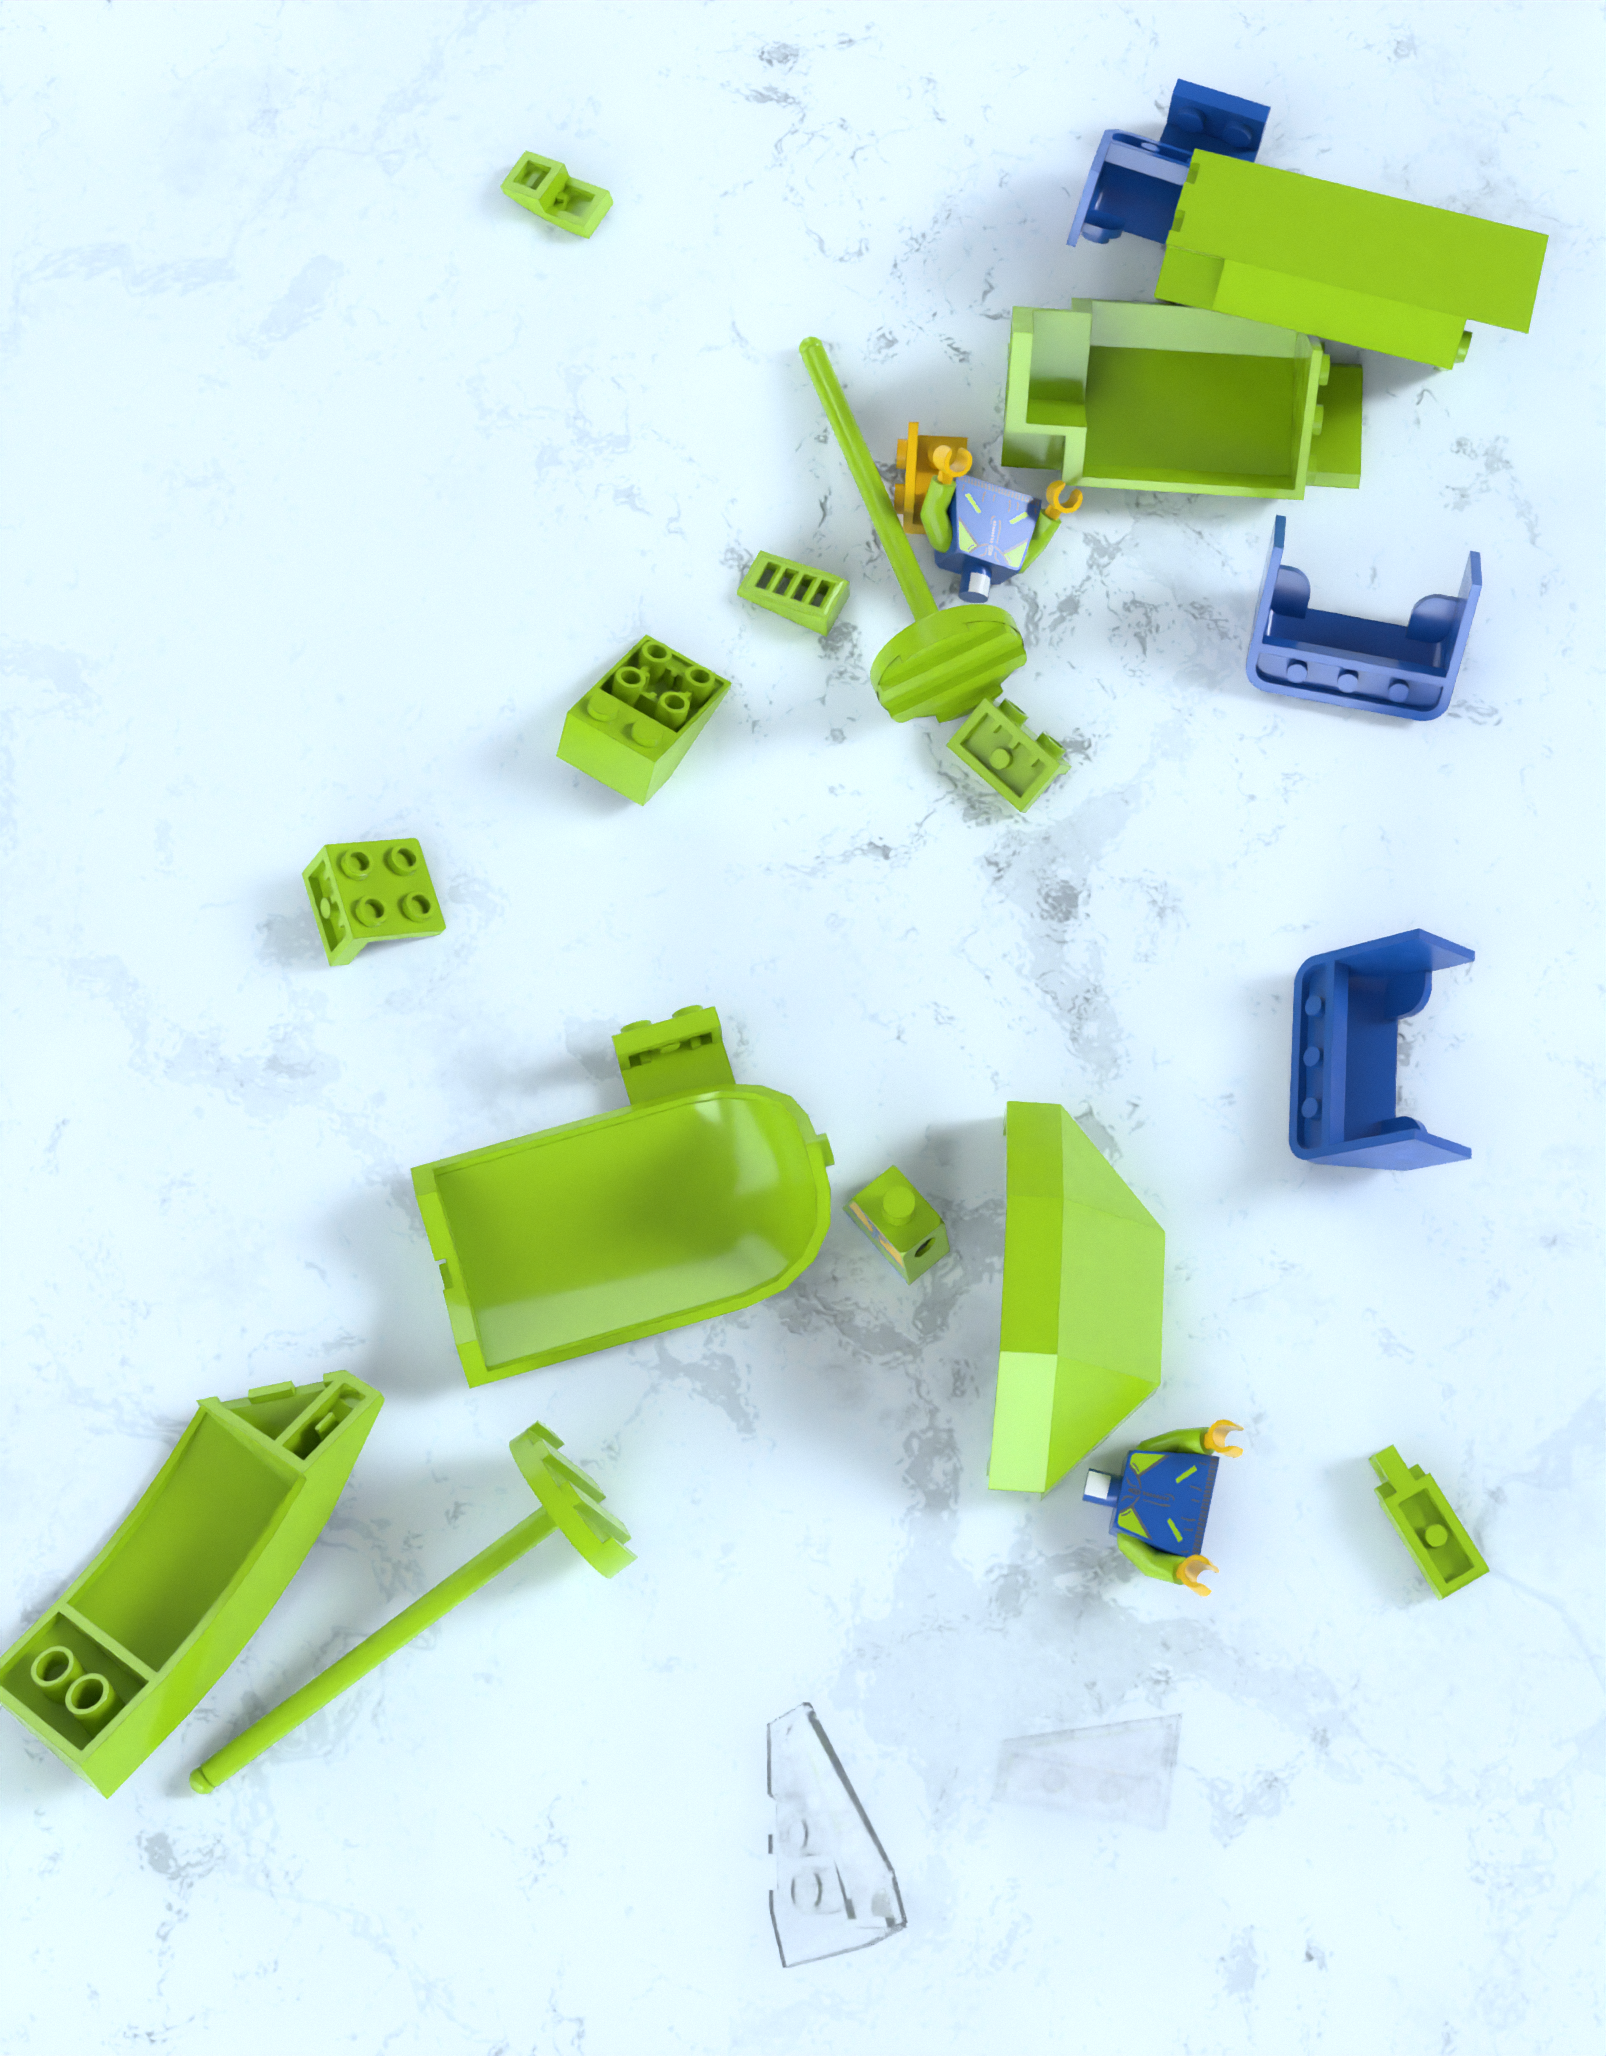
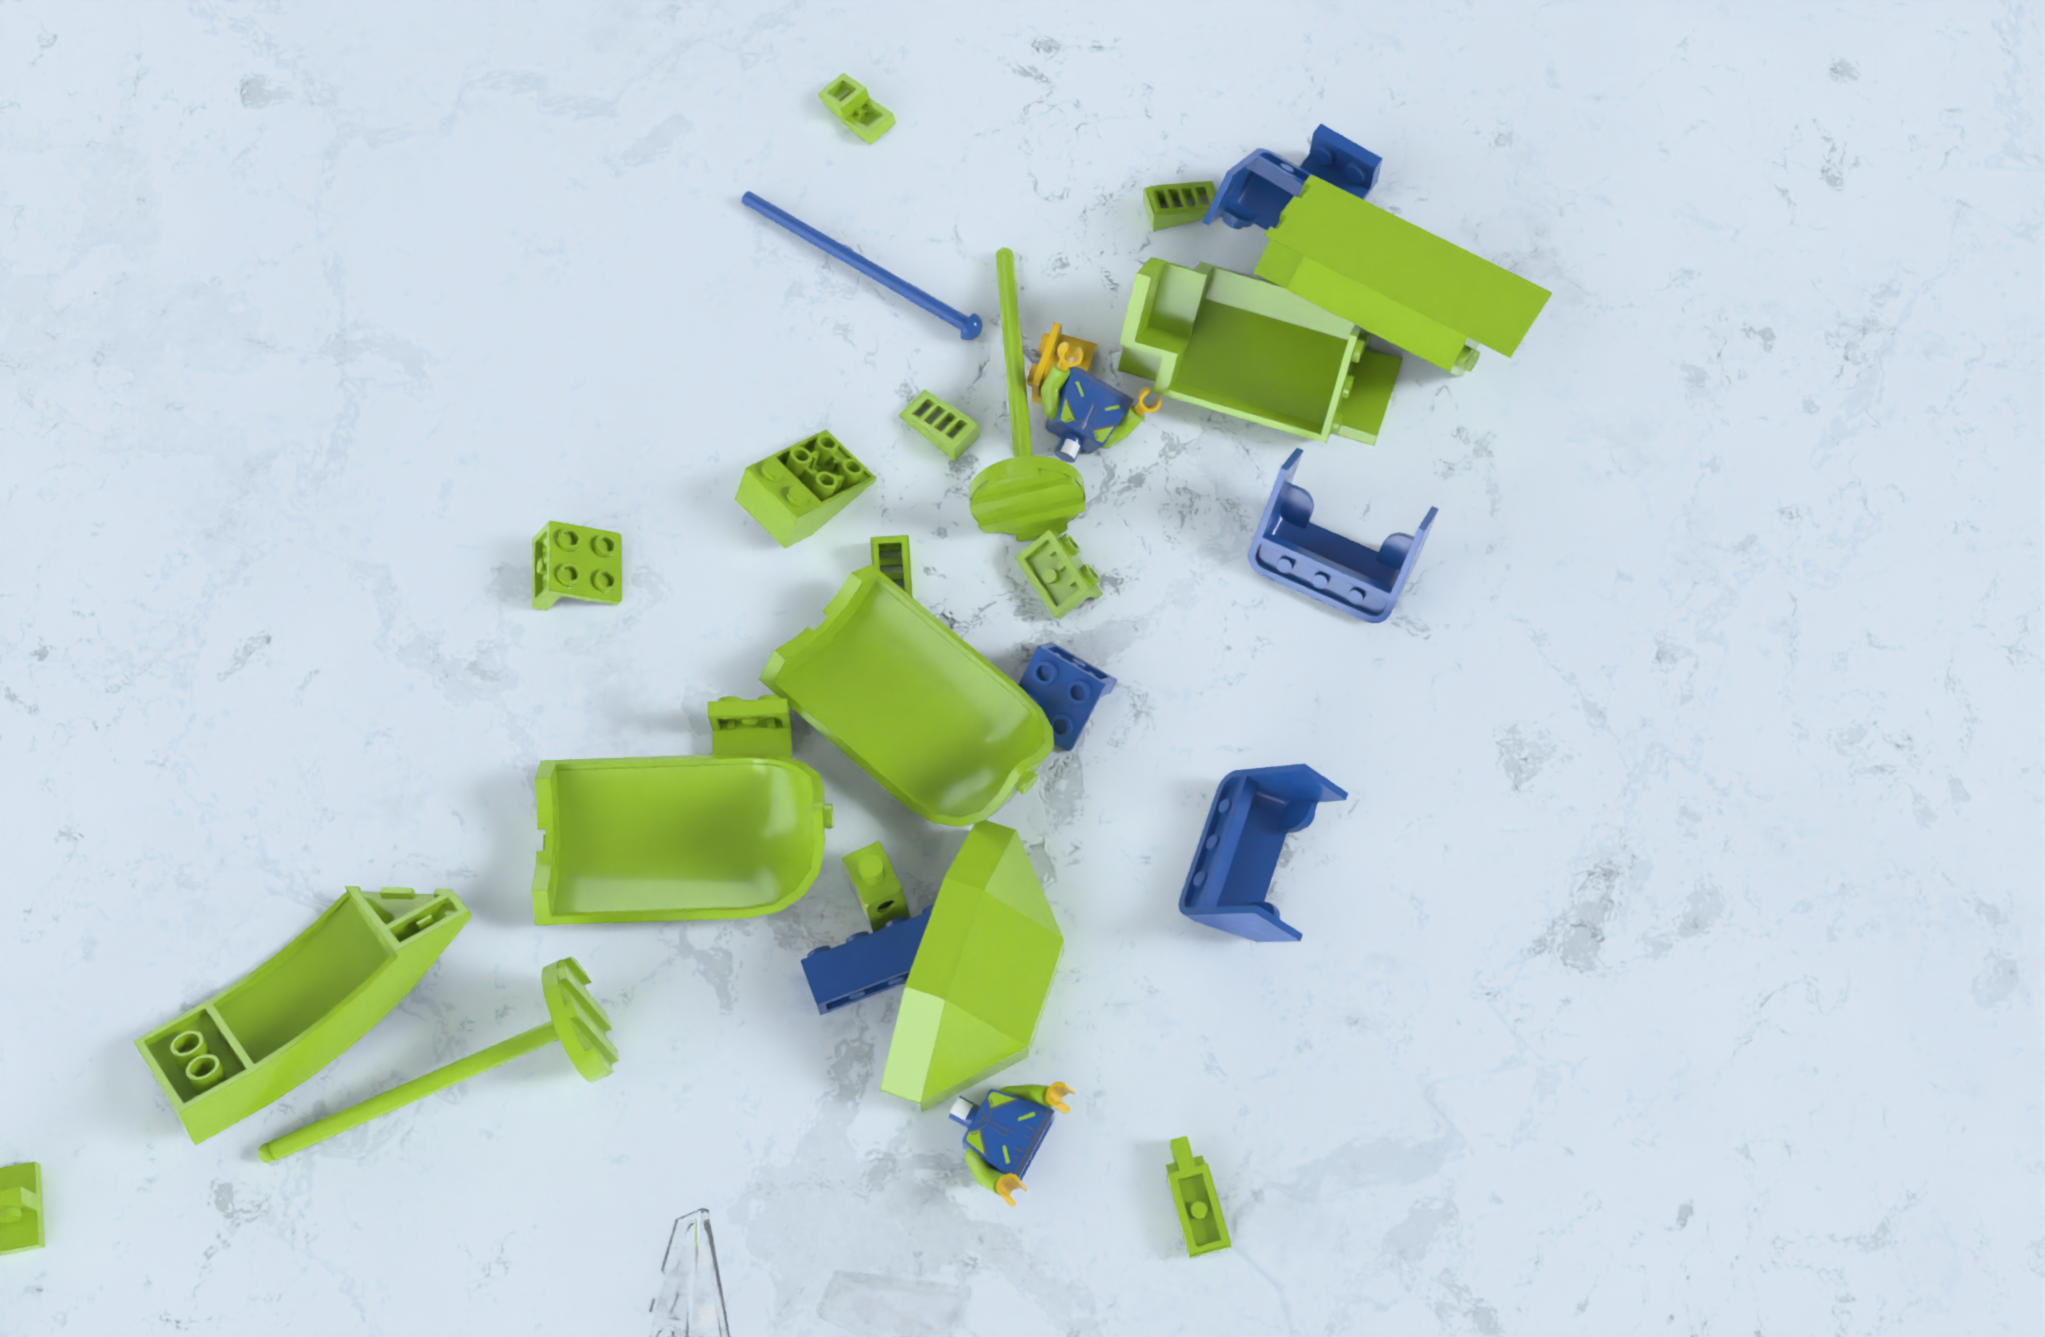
camera: 15 degrees right, 5 degrees down
(783, 765) = (890, 544): none -> lime slope
(796, 453) = (970, 326): none -> bar
(879, 972) = (912, 703): none -> lime panel
(926, 1321) = (864, 963): none -> blue brick
(1000, 216) = (1168, 193): none -> lime slope
(1057, 914) = (1065, 690): none -> blue bracket

